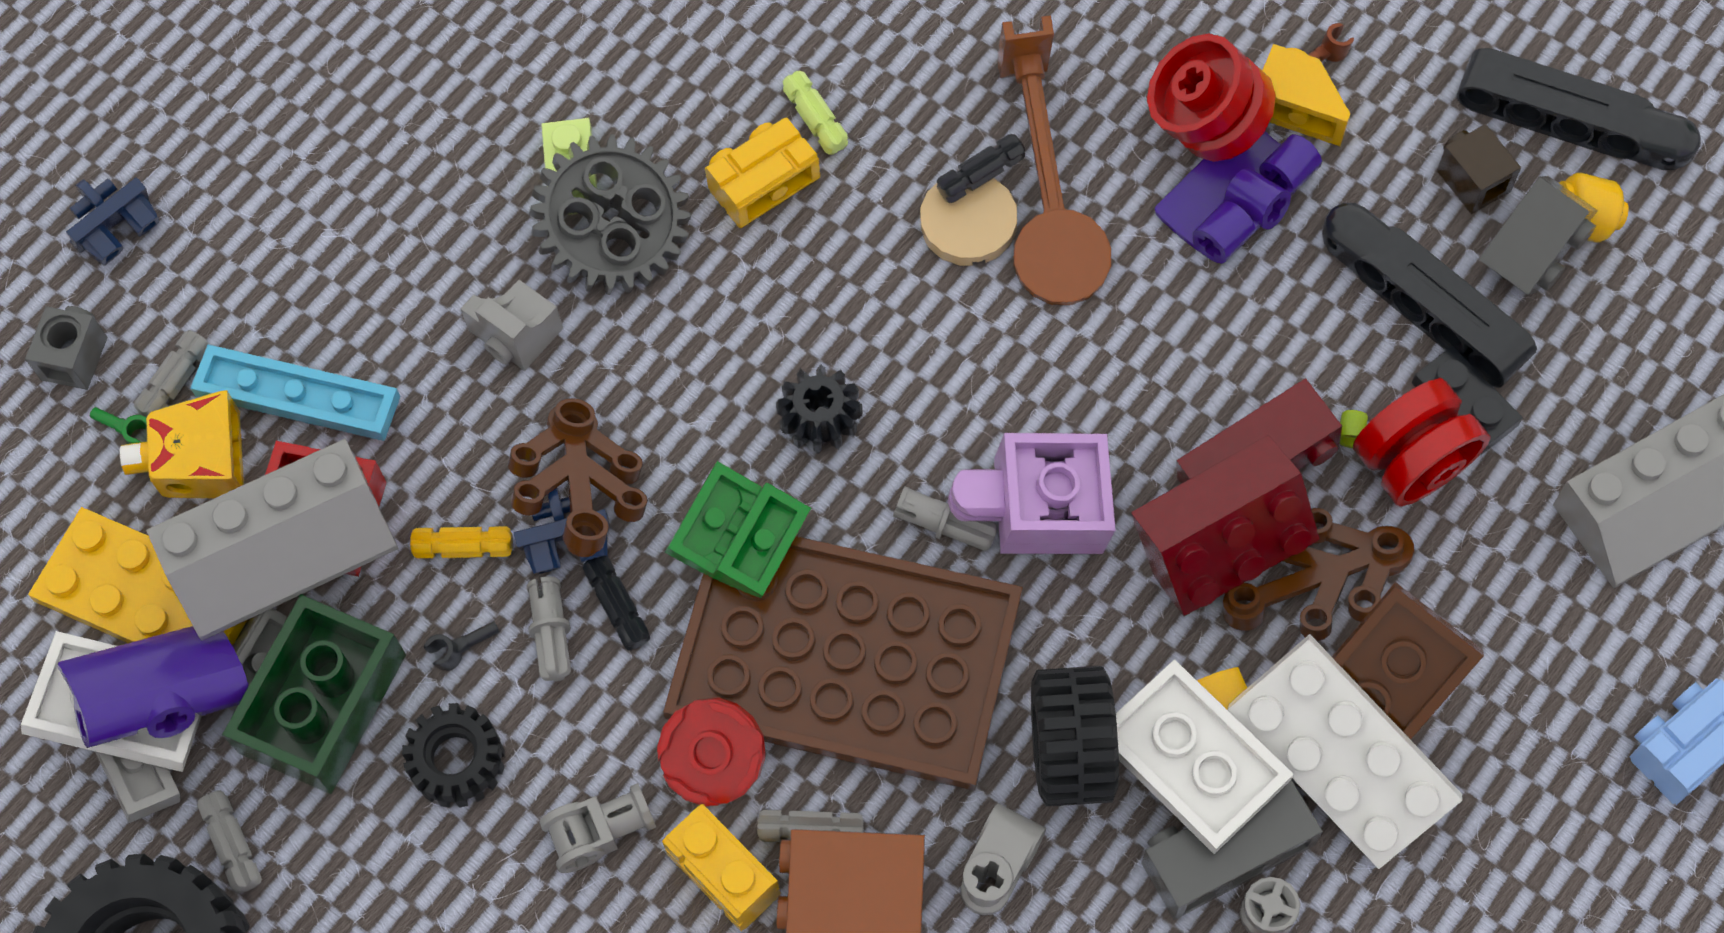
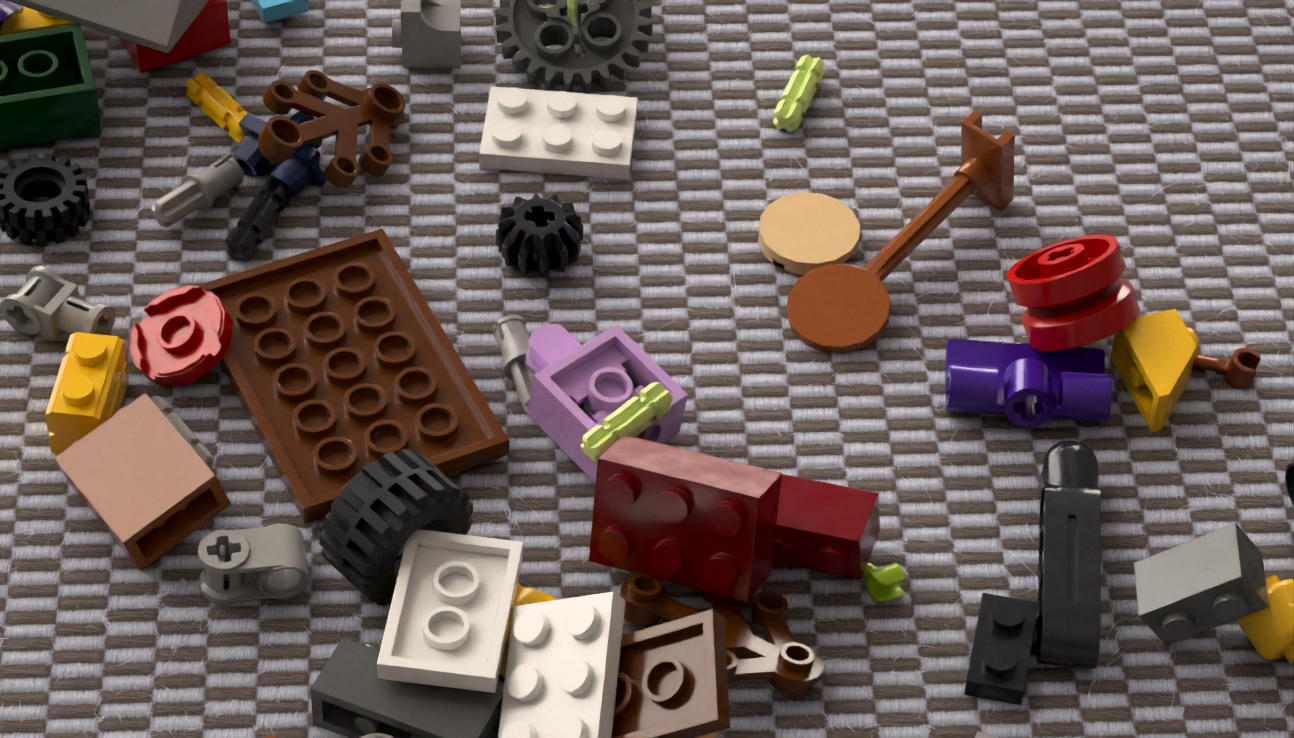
camera: 45 degrees right, 20 degrees down
(458, 645) = (126, 154): black hand -> none
(707, 312) = (558, 132): none -> white plate
(738, 530) = (379, 236): green slope -> none
(762, 171) = (708, 88): yellow brick -> none
(981, 168) = (854, 204): black axle -> none
(1112, 499) = (627, 420): none -> yellowish green axle
(1421, 442) = (907, 611): red wheel -> none
(1478, 168) = (1229, 503): dark brown brick -> none

